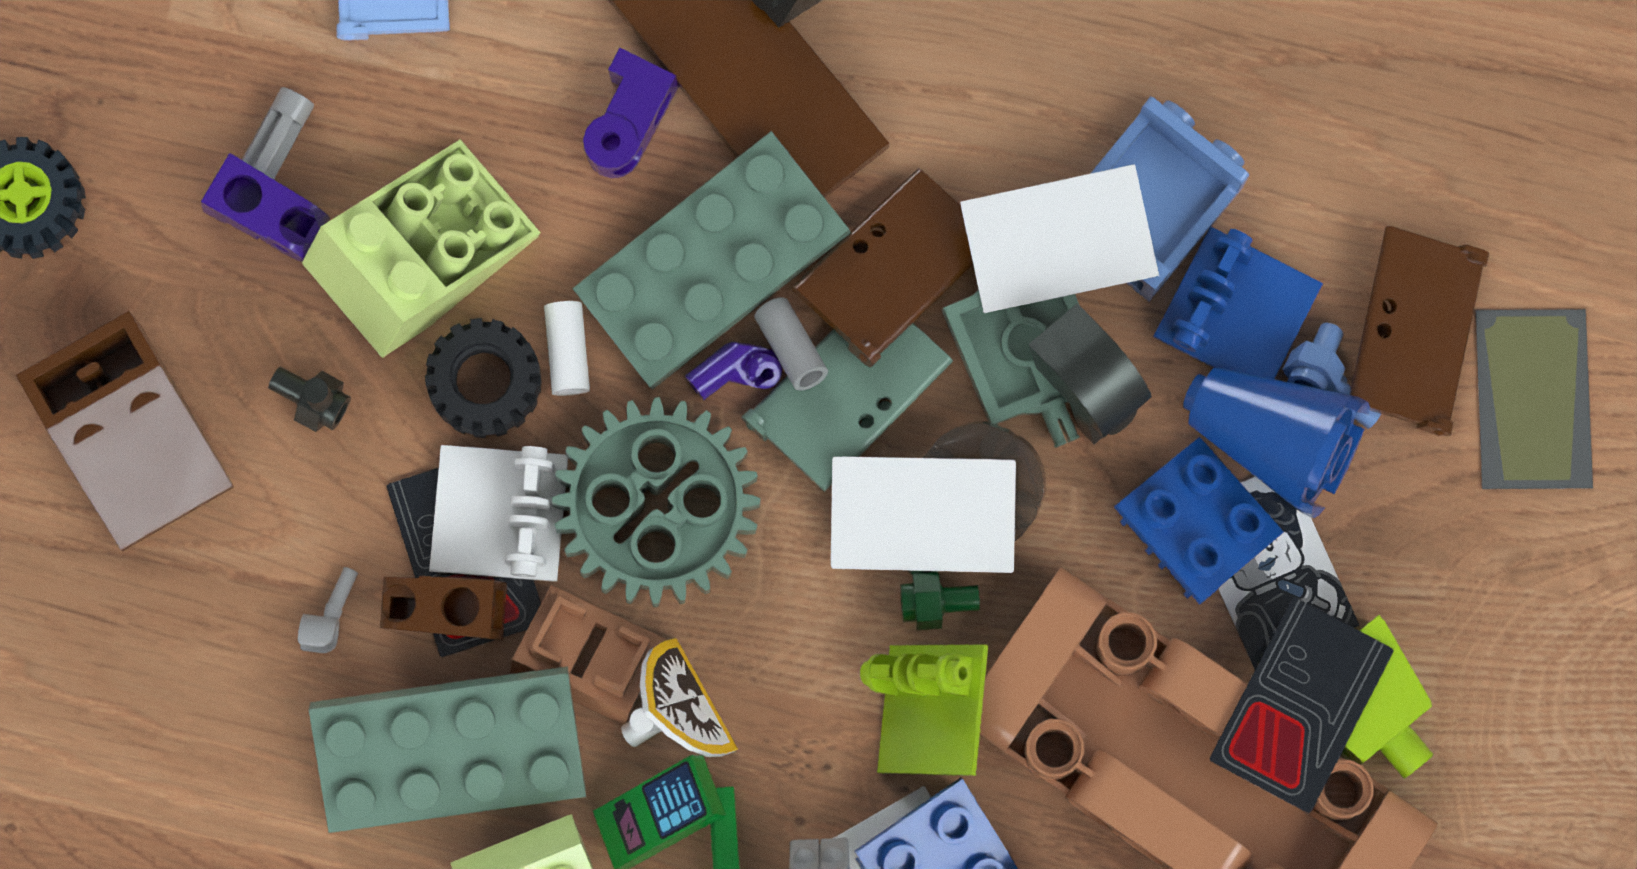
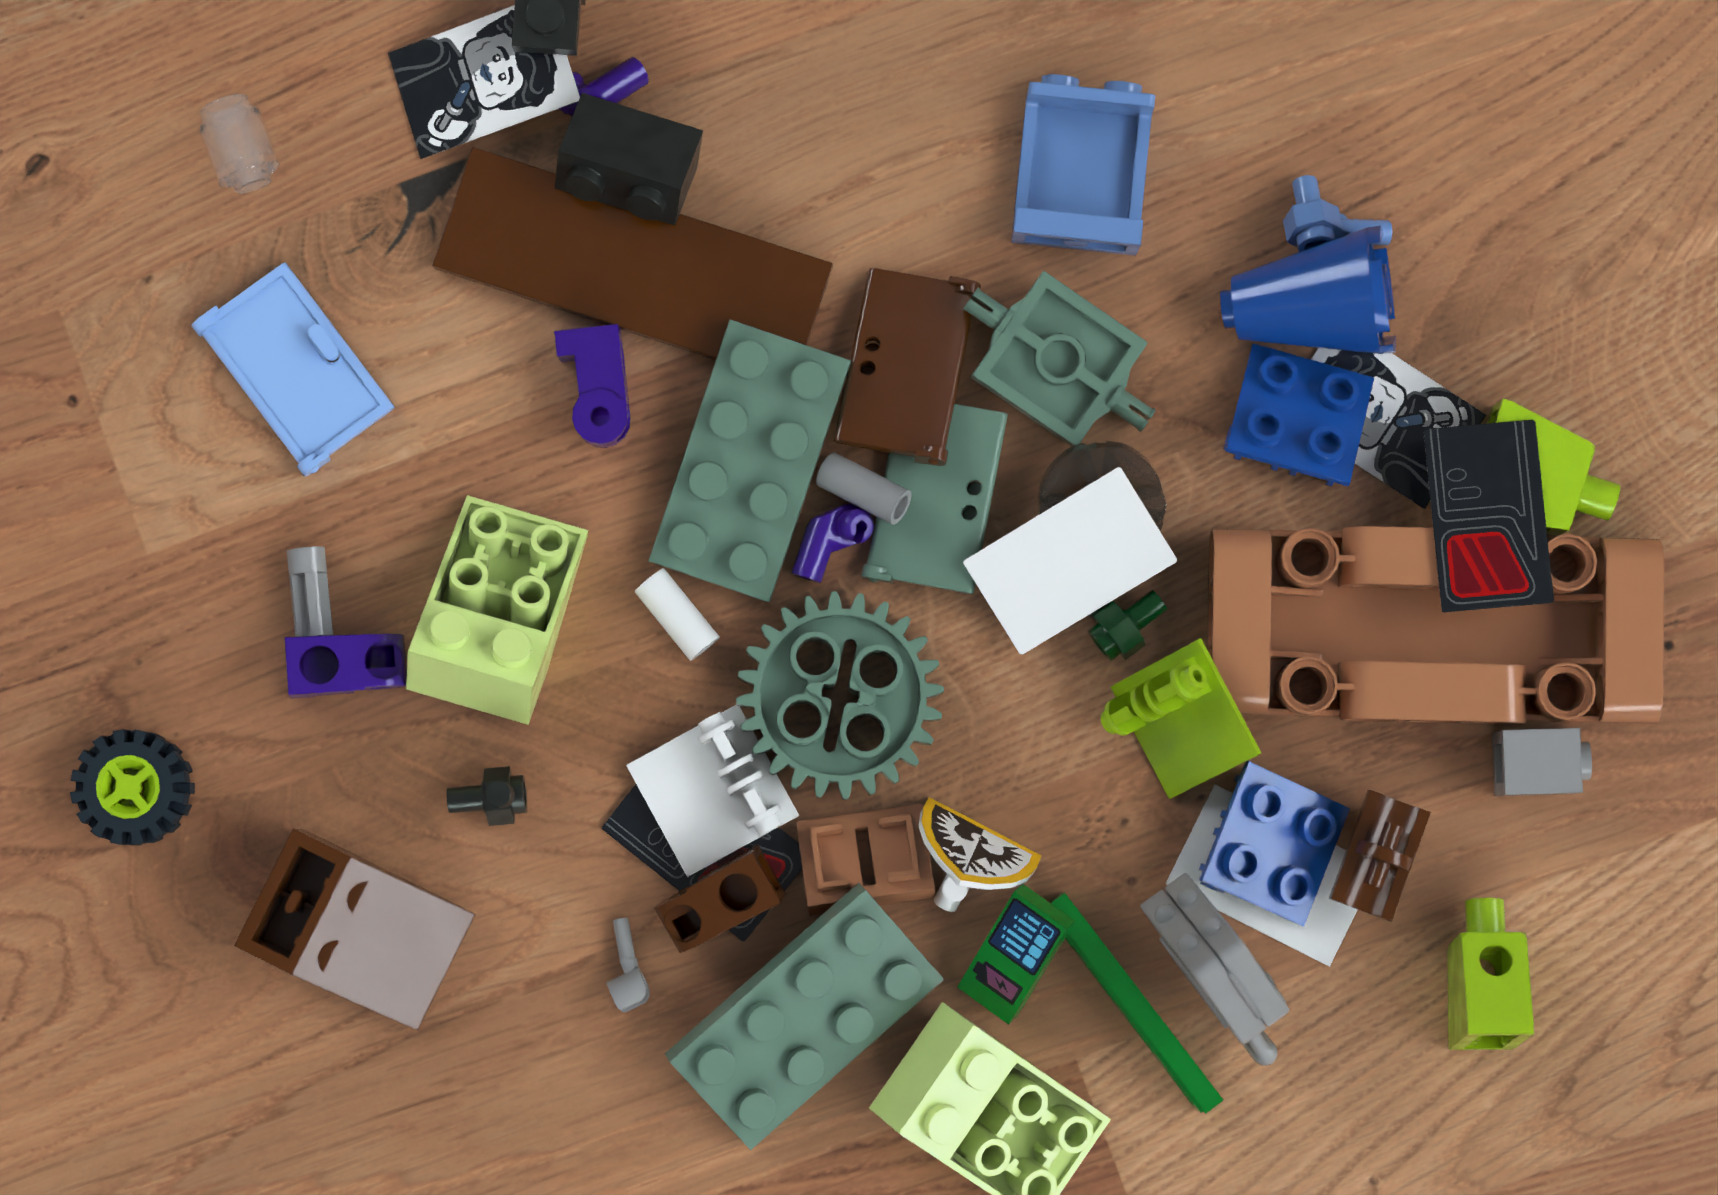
camera: 30 degrees left, 5 degrees up
(471, 340) = (585, 675): black tyre -> none
(1059, 238) = (1032, 254): white sticker -> none
(1090, 374) = (1134, 352): pearl dark grey brick -> none
(1237, 306) = (1214, 213): blue hinge -> none
(1427, 330) = (1394, 159): reddish brown door -> none
(1534, 399) = (1507, 129): olive sticker -> none

